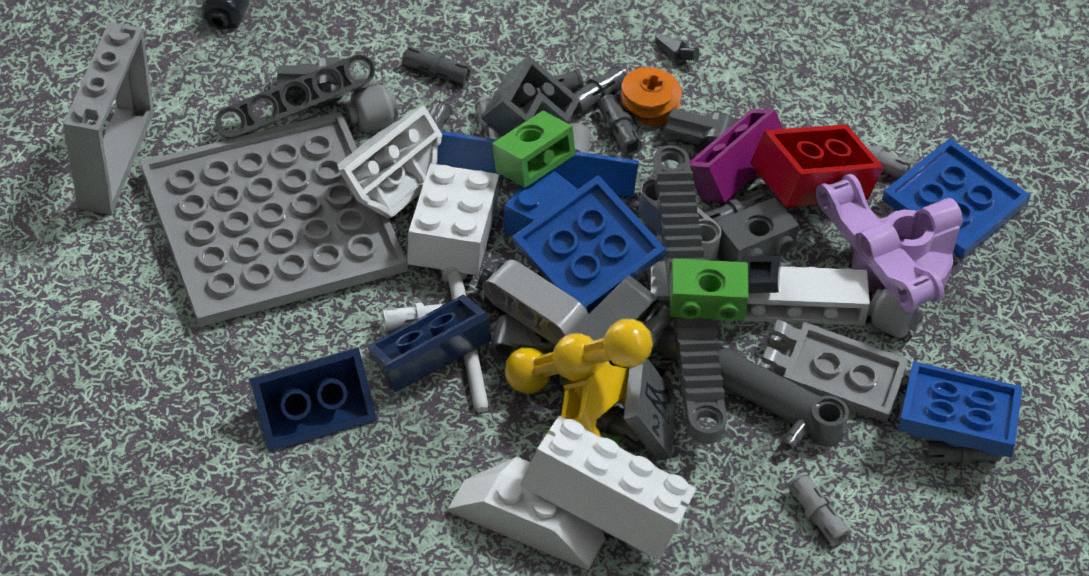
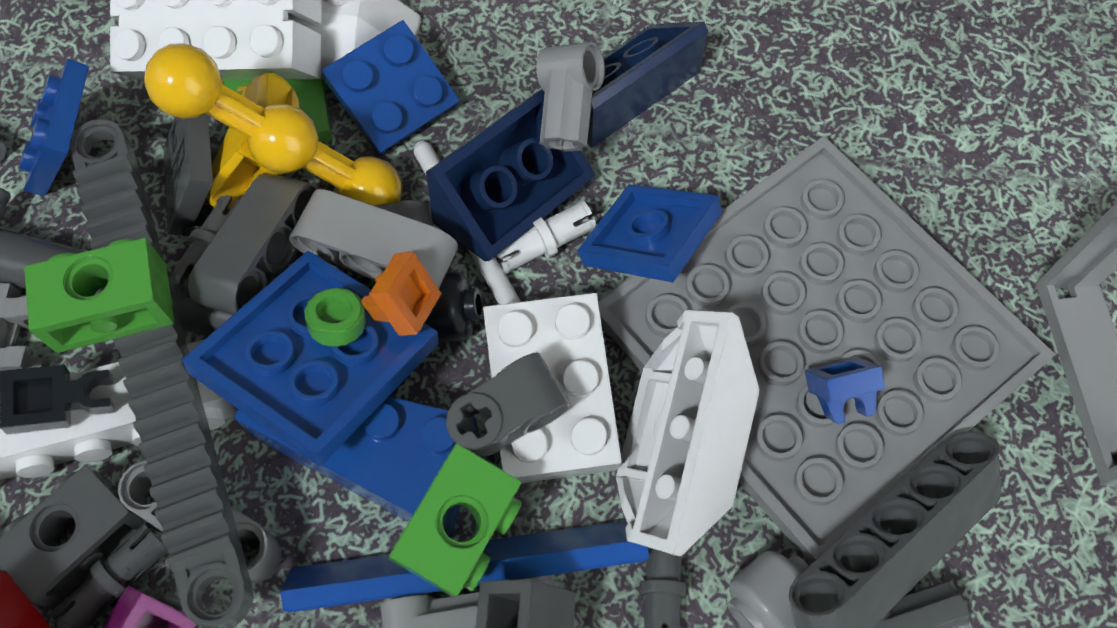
camera: 165 degrees right, 15 degrees up
(281, 167) = (846, 380): none -> blue tile
(351, 285) = (650, 232): none -> blue plate
(371, 351) = (568, 78): none -> light grey piece
(485, 178) = (514, 402): none -> dark grey piece
(490, 438) = (390, 87): none -> blue plate
(526, 243) = (402, 294): none -> orange tile
(570, 251) = (335, 317): none -> bright green tile
(741, 461) = (53, 127): none -> blue plate

